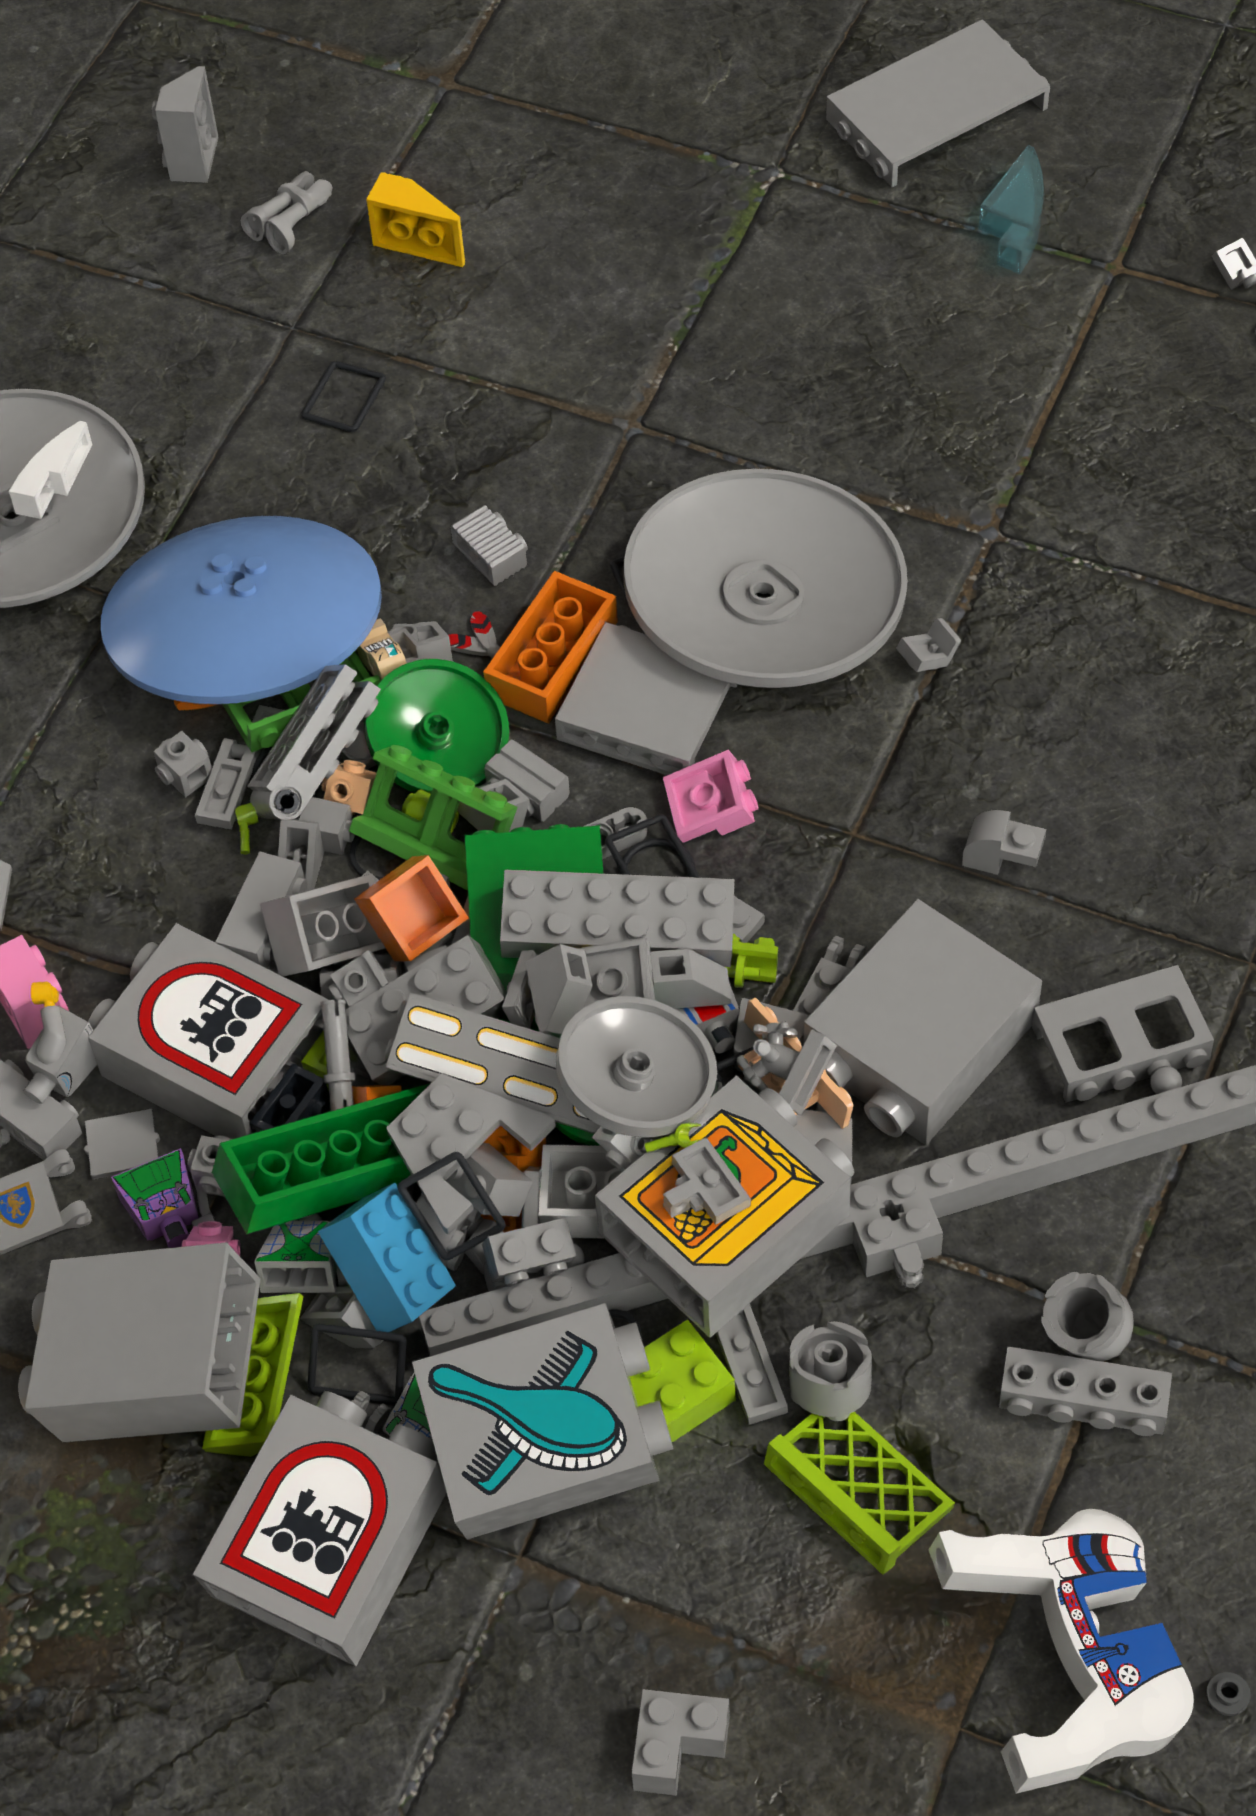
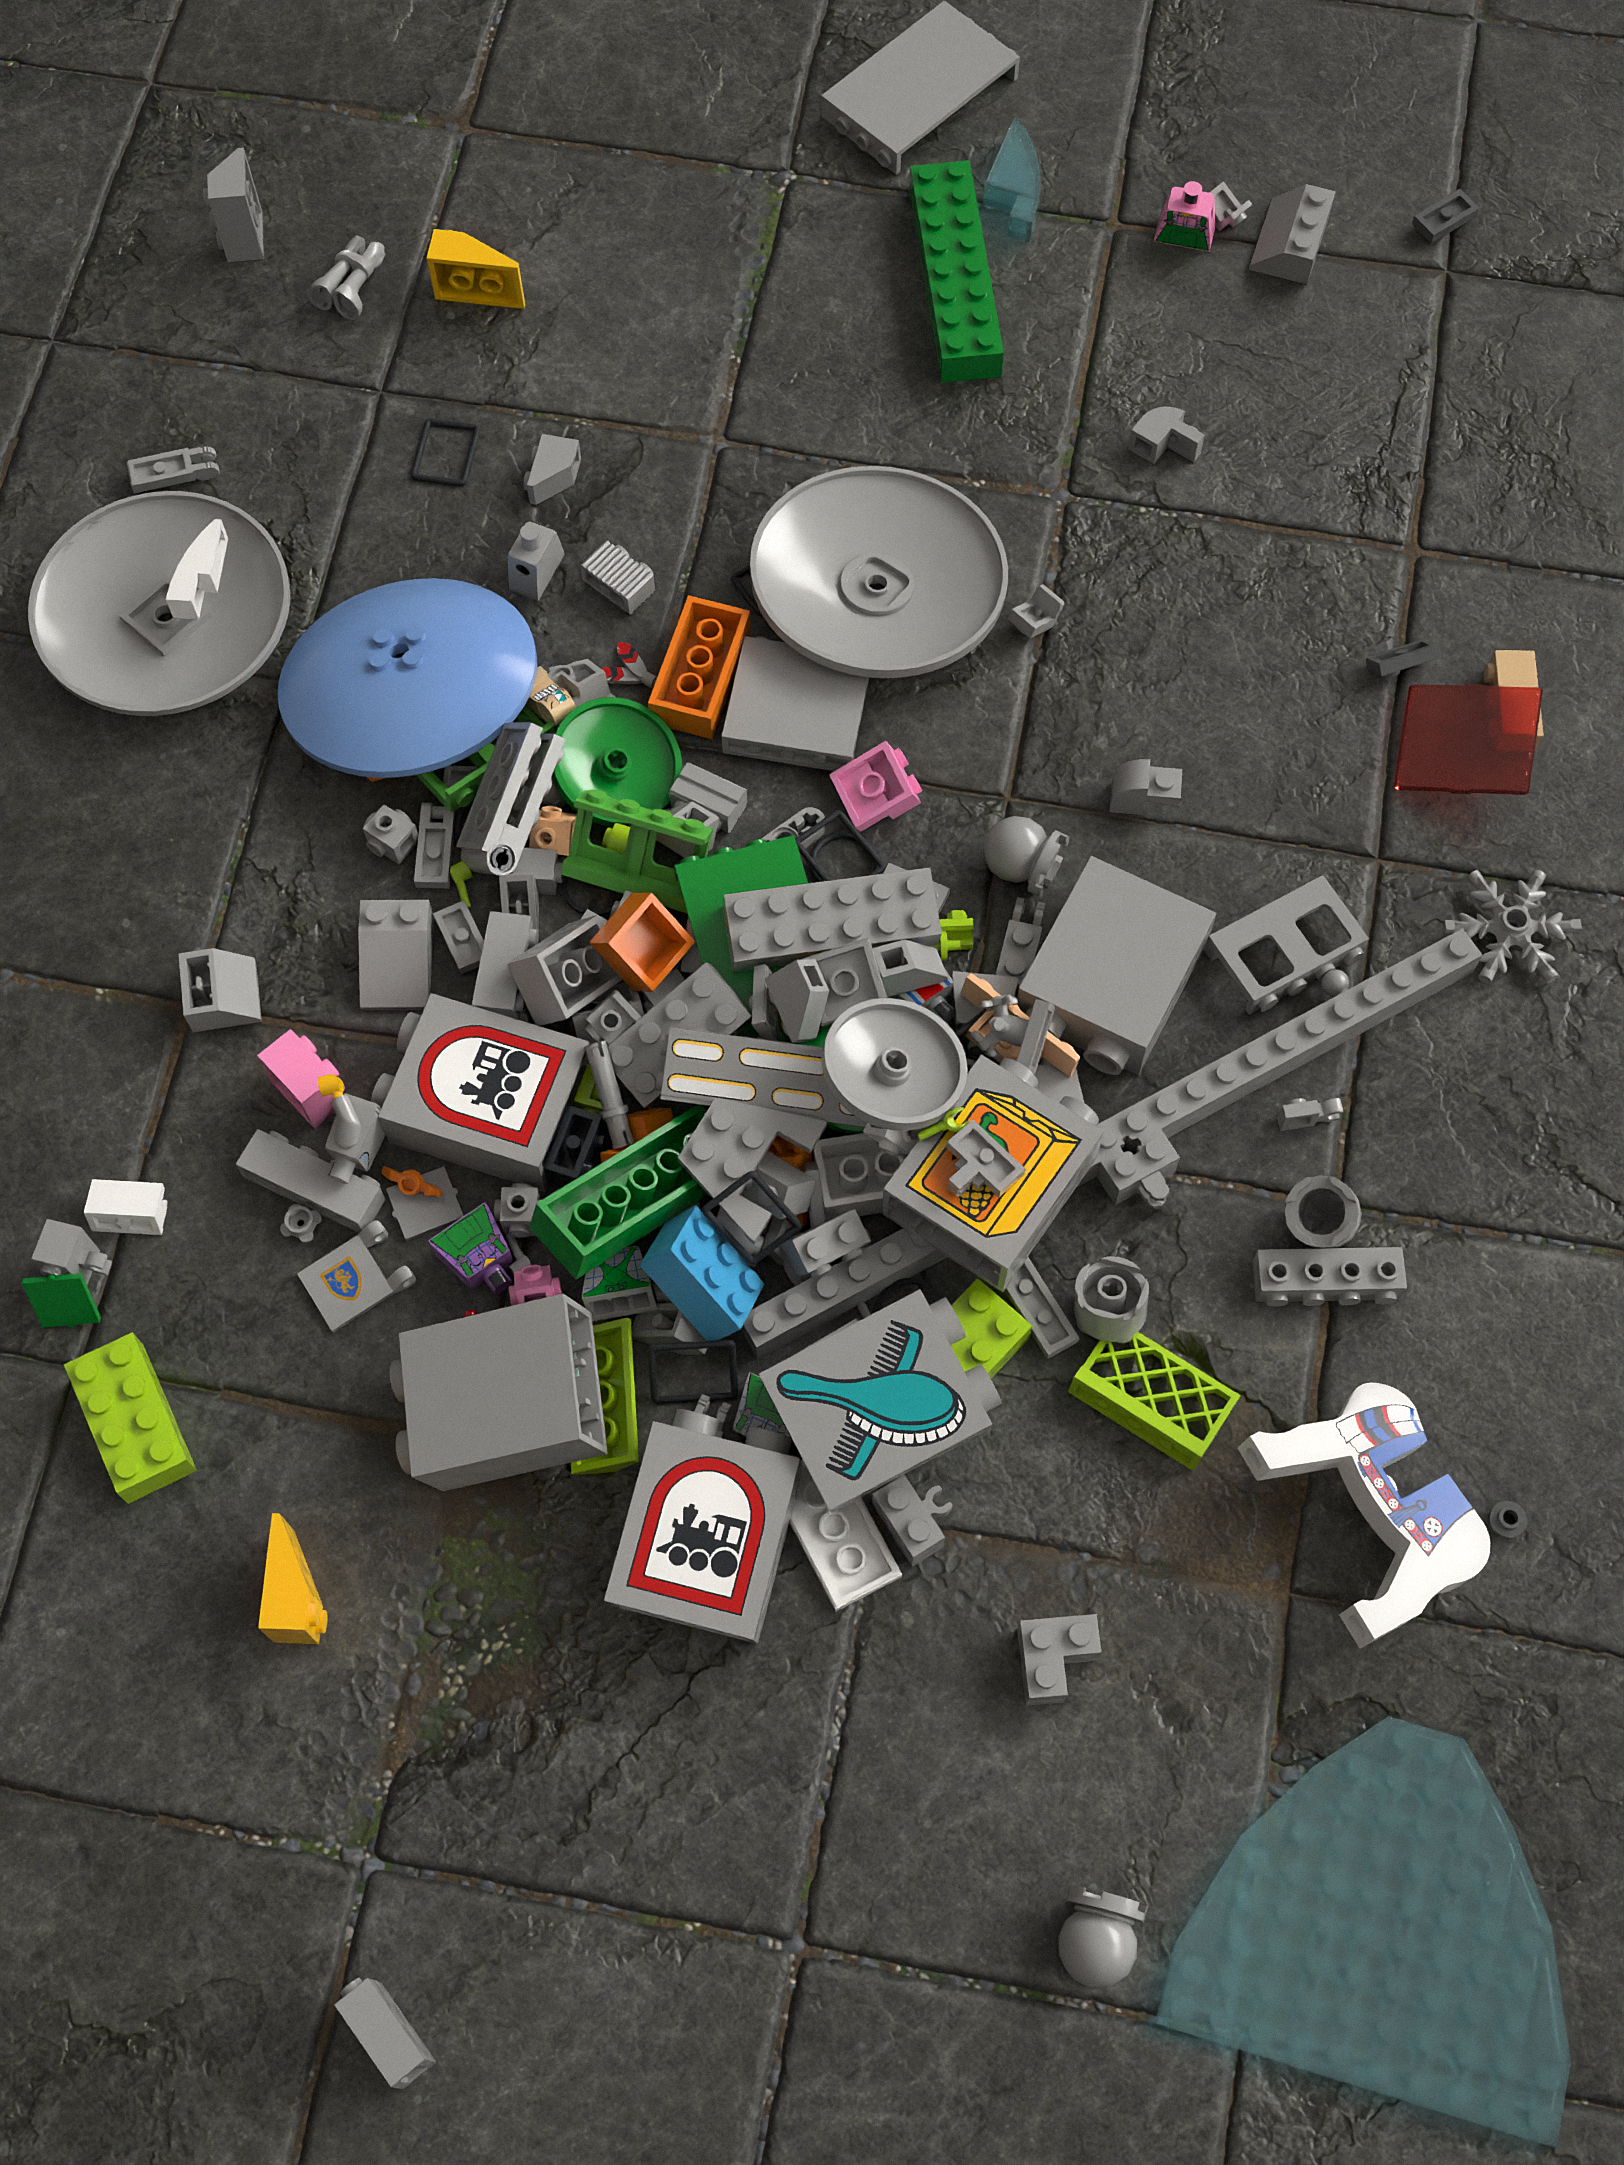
camera: 15 degrees left, 10 degrees up
(58, 371) = (172, 468): none -> light grey hinge
(111, 1118) = (411, 1182): none -> orange piece
(156, 882) = (395, 954): none -> light grey slope
(228, 874) = (461, 935): none -> light grey plate
(404, 513) = (537, 553): none -> light grey torso
(449, 426) = (553, 467): none -> light grey slope
(473, 1581) = (841, 1545): none -> white tile
(554, 1562) = (910, 1518): none -> light grey brick
(850, 888) = (1021, 851): none -> light grey tile
(928, 291) = (955, 272): none -> green brick
(1100, 1215) = (1303, 1114): none -> light grey plate
(1116, 481) = (1165, 429): none -> light grey brick
(1195, 270) = (1187, 218): none -> torso

